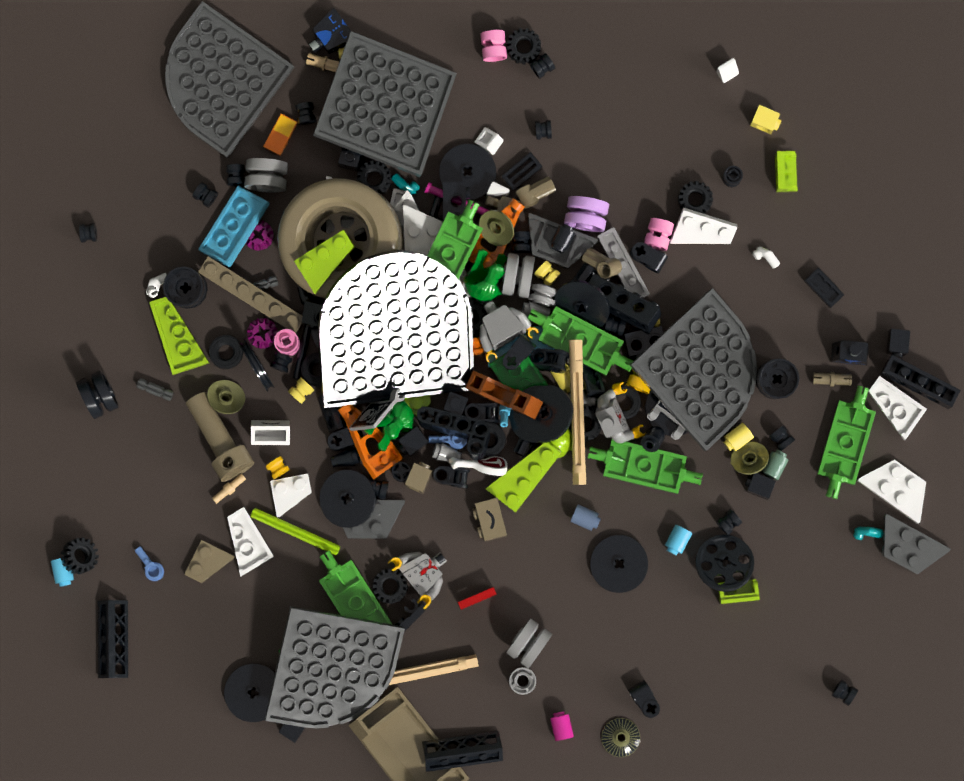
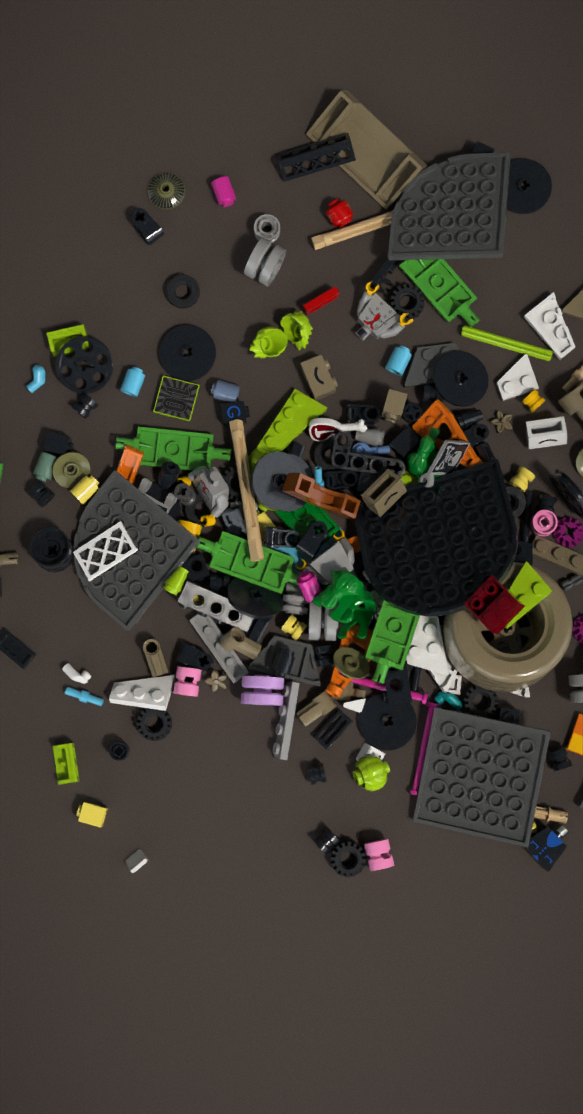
camera: 175 degrees right, 0 degrees up
(312, 452) = (502, 422): none -> dark tan plant
(354, 250) = (494, 605): none -> dark red slope
(407, 526) = (398, 360): none -> medium azure brick
(422, 179) = (421, 759): none -> dark pink bar
(441, 389) = (384, 492): none -> dark tan brick
(446, 687) = (339, 212): none -> red head
(490, 124) = (371, 772): none -> lime plant
(499, 292) = (344, 588): none -> green piece
(505, 572) = (297, 328): none -> lime hair
(527, 306) = (309, 585): none -> dark pink brick
(536, 561) = (269, 342): none -> lime hair
(569, 177) = (285, 724): none -> light grey plate
(578, 494) = (234, 411): none -> black brick
(624, 619) = (182, 280): none -> black tyre
(630, 233) = (216, 680): none -> dark tan plant
(633, 415) = (180, 491): none -> flat silver bush
(635, 518) = (176, 398): none -> tile
(658, 328) = (176, 581): none -> lime cone
(687, 260) = (155, 660): none -> dark tan piece
(690, 456) = (130, 462): none -> orange tile
(738, 378) = (91, 545): none -> white window
(761, 234) = (84, 696): none -> medium azure bar
(772, 557) = (38, 378): none -> medium azure arm

